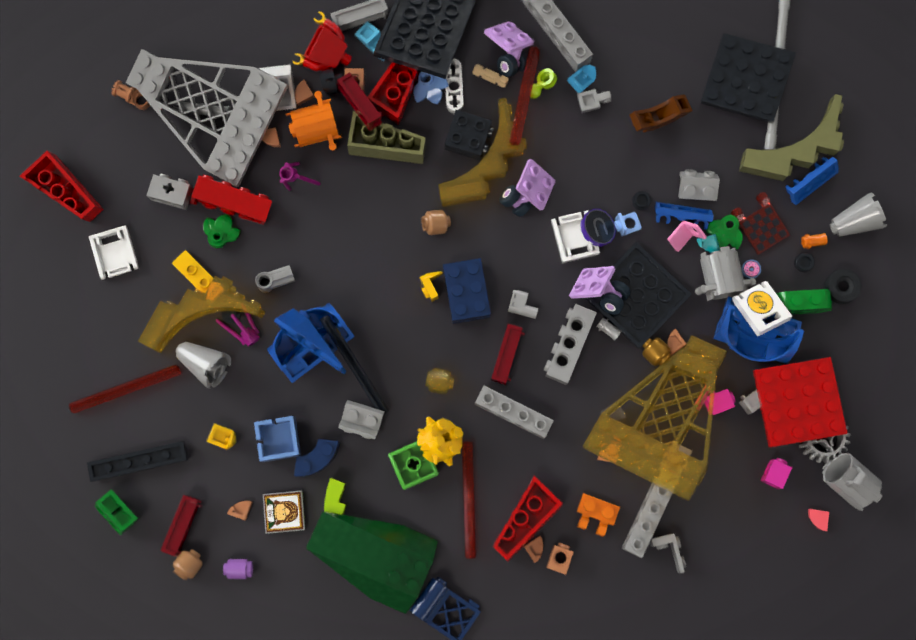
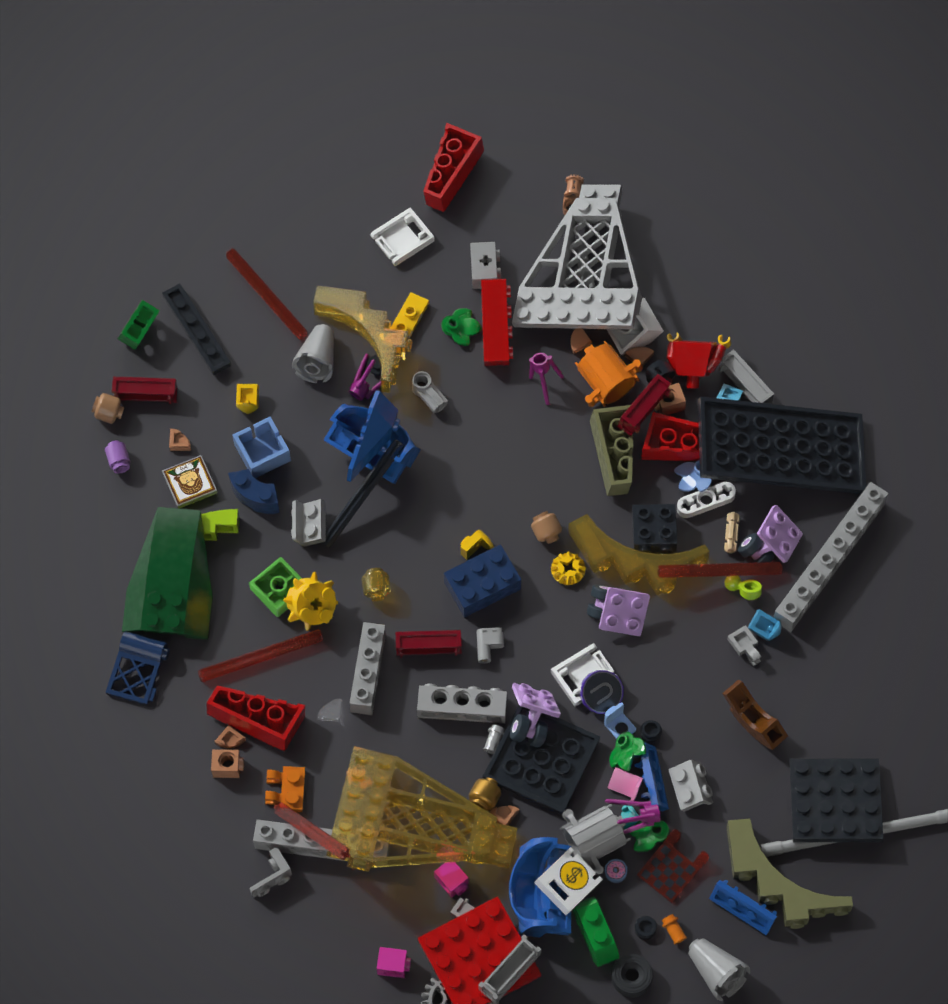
camera: 75 degrees right, 15 degrees down
(475, 226) = (570, 577): none -> yellow gear
(538, 455) = (331, 711): none -> clear tile
(658, 225) = (625, 749): none -> green plate
(661, 505) = (312, 831): none -> clear red axle
(720, 226) = (648, 815): none -> magenta plant
(825, 380) = (510, 970): none -> light grey container

